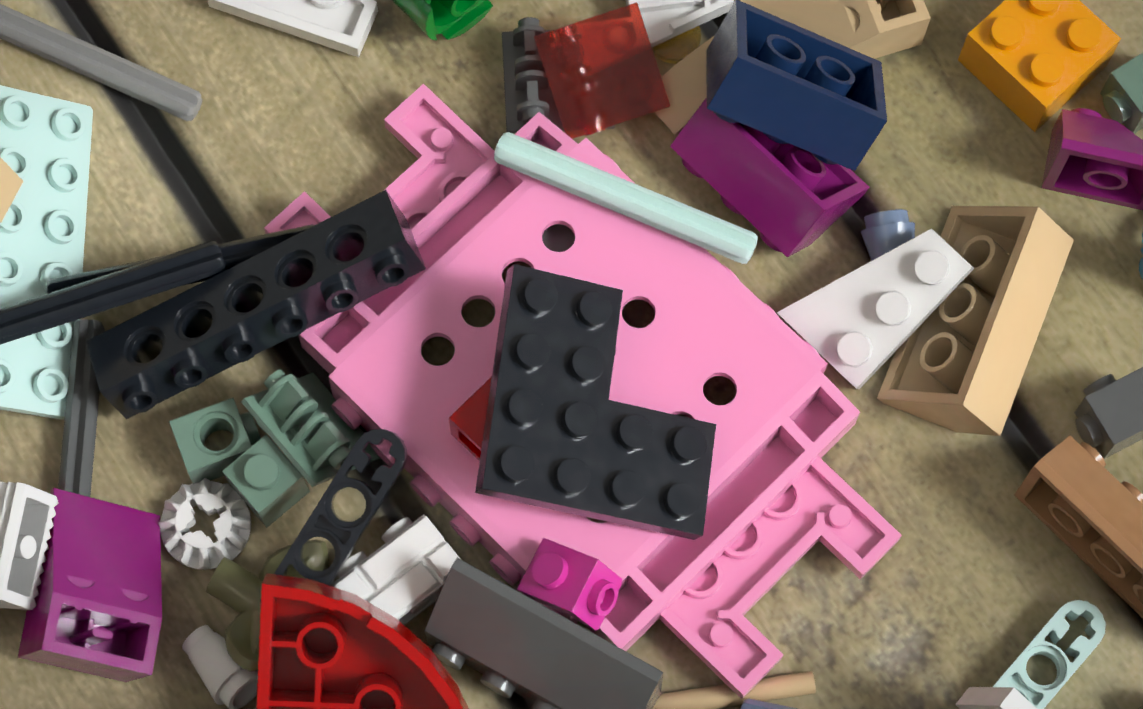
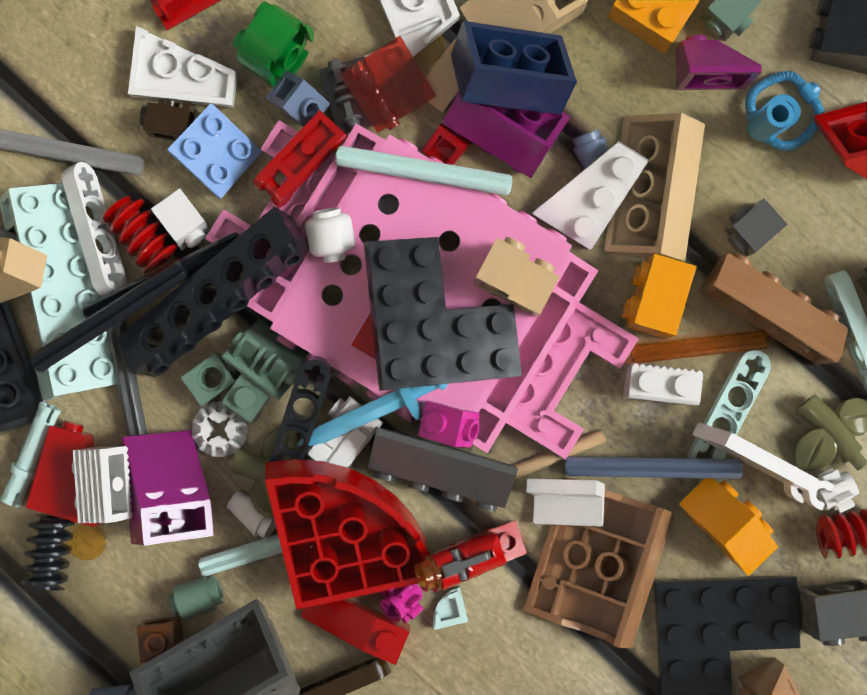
camera: 10 degrees left, 15 degrees up
(98, 120) = (81, 181): none -> white beam
(163, 197) = (139, 234): none -> red piece
(235, 193) = (181, 220): none -> white brick
(257, 50) = (167, 118): none -> dark brown brick
(314, 107) = (214, 151): none -> light blue hinge
(441, 140) = (300, 158): none -> red plate
(458, 253) = (330, 234): none -> white head
(459, 64) = (296, 99): none -> sand blue brick
(509, 525) = (370, 412): none -> medium azure sword
(671, 178) = (446, 145): none -> red slope
(722, 380) = (515, 278): none -> tan brick
(925, 617) = (663, 384): none -> white brick
(951, 467) = (658, 296): none -> light orange brick
(995, 577) = (700, 346): none -> clear orange axle

